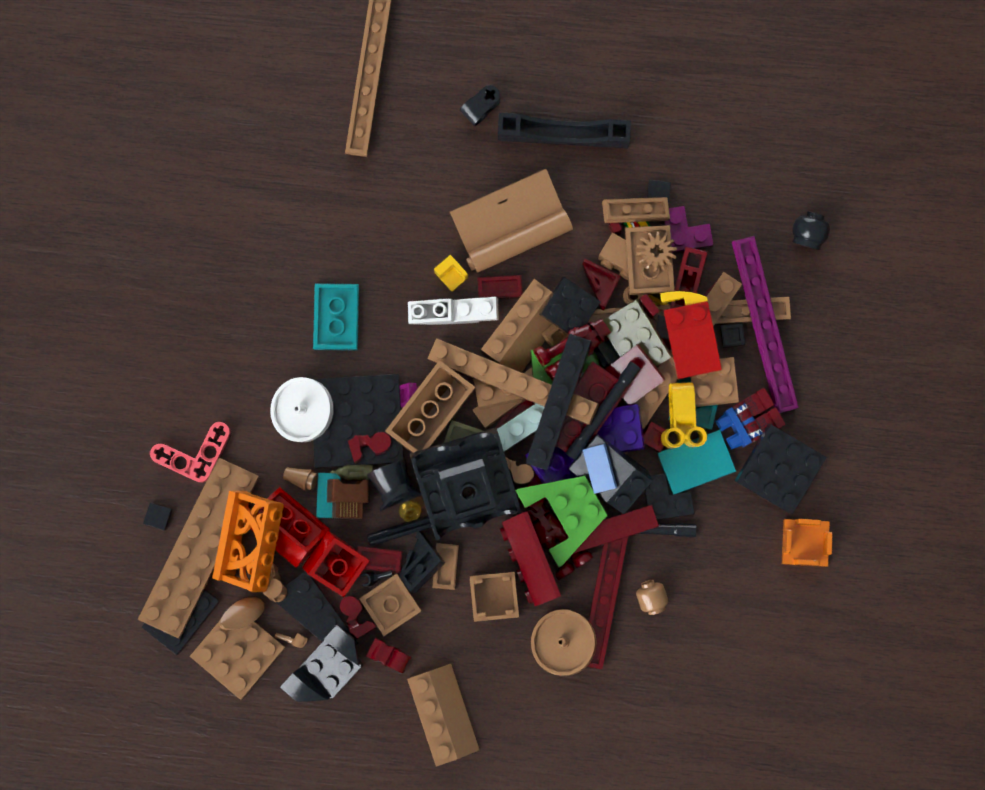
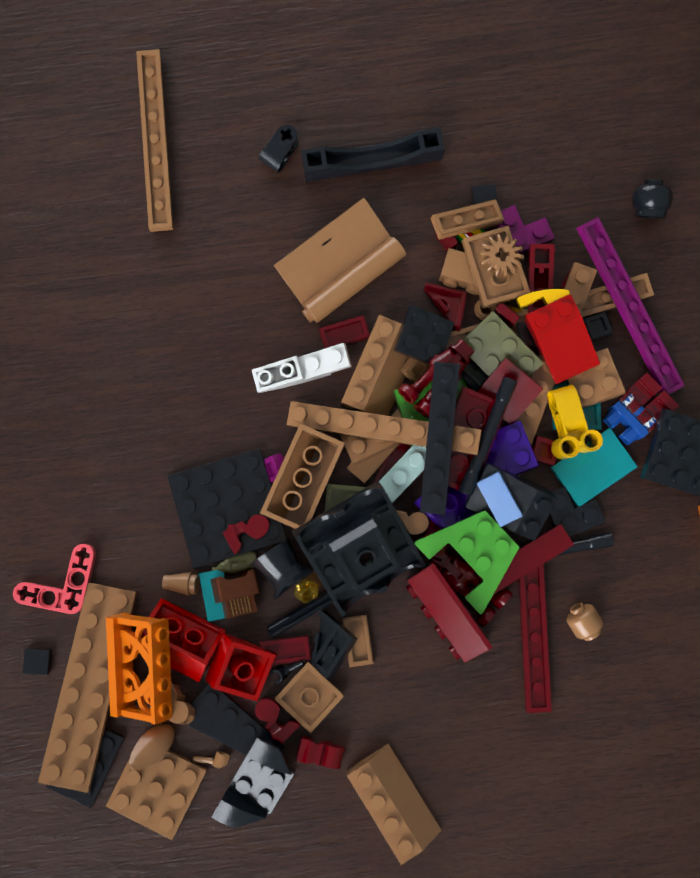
camera: 20 degrees left, 0 degrees up
(301, 409) = (165, 510): white piece -> none
(336, 317) = (179, 403): teal tile -> none
(451, 273) = (290, 329): yellow panel -> none
(494, 596) = (418, 662): medium nougat container -> none
(563, 642) = (503, 693): medium nougat piece -> none

